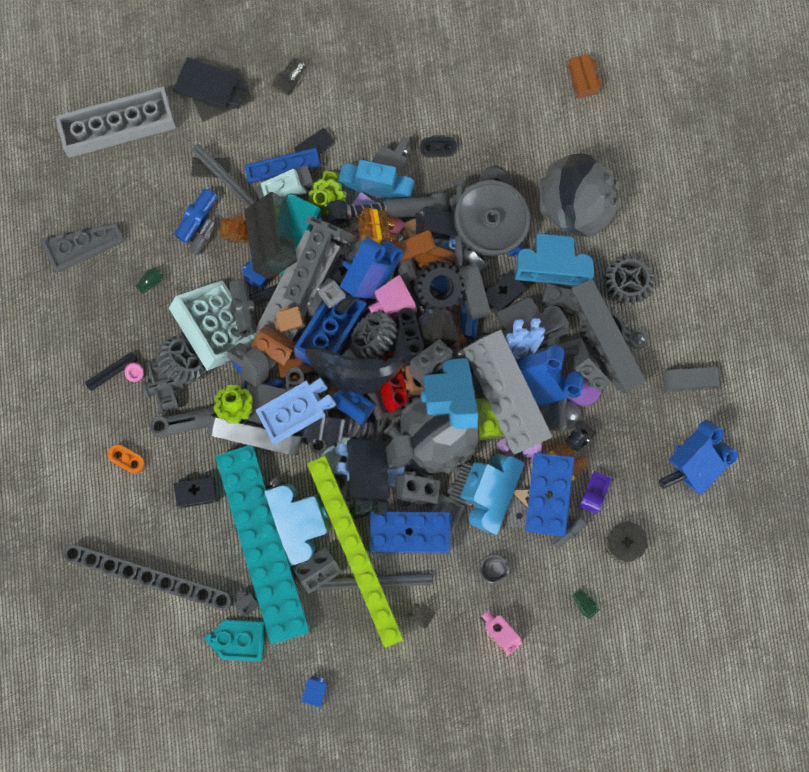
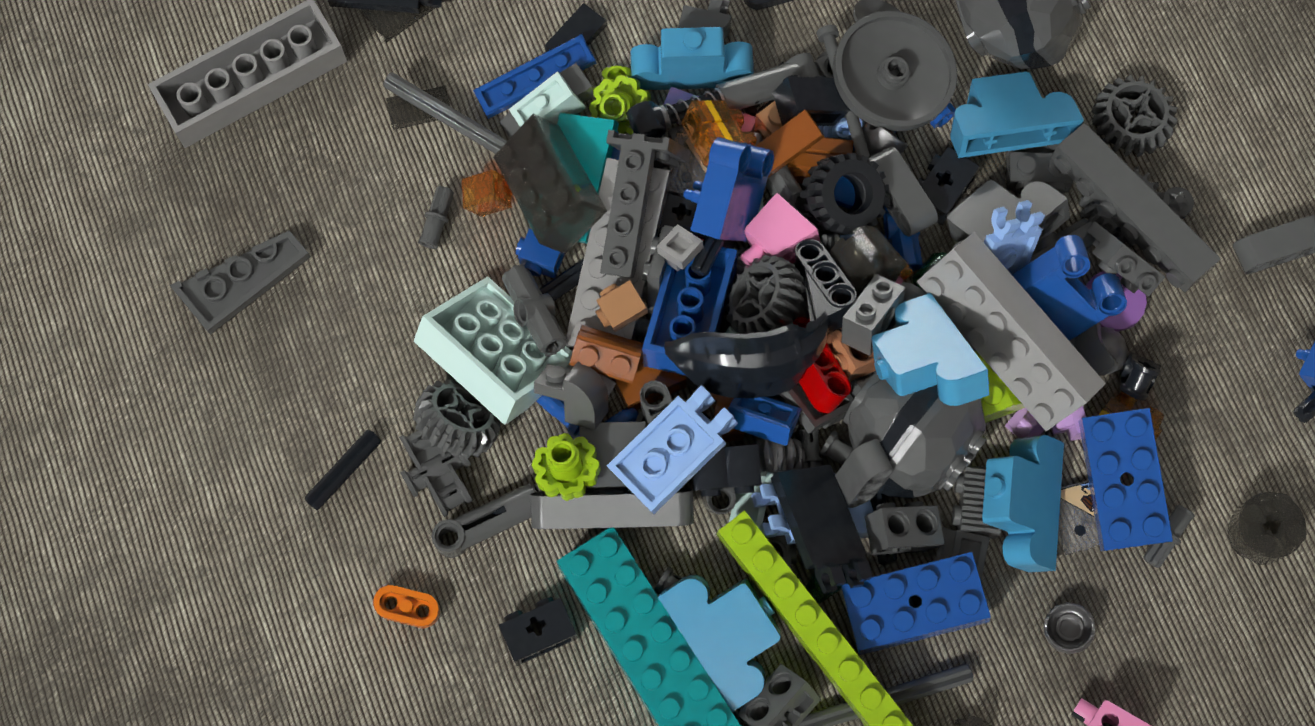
camera: 15 degrees left, 5 degrees down
(134, 372) = (382, 460): bright pink tile -> none
(149, 280) = (368, 307): clear green cone -> none
(195, 215) = (416, 187): blue piece -> none
(586, 605) = (1233, 646): clear green cone -> none
(595, 493) = (1189, 463): dark purple plate -> none

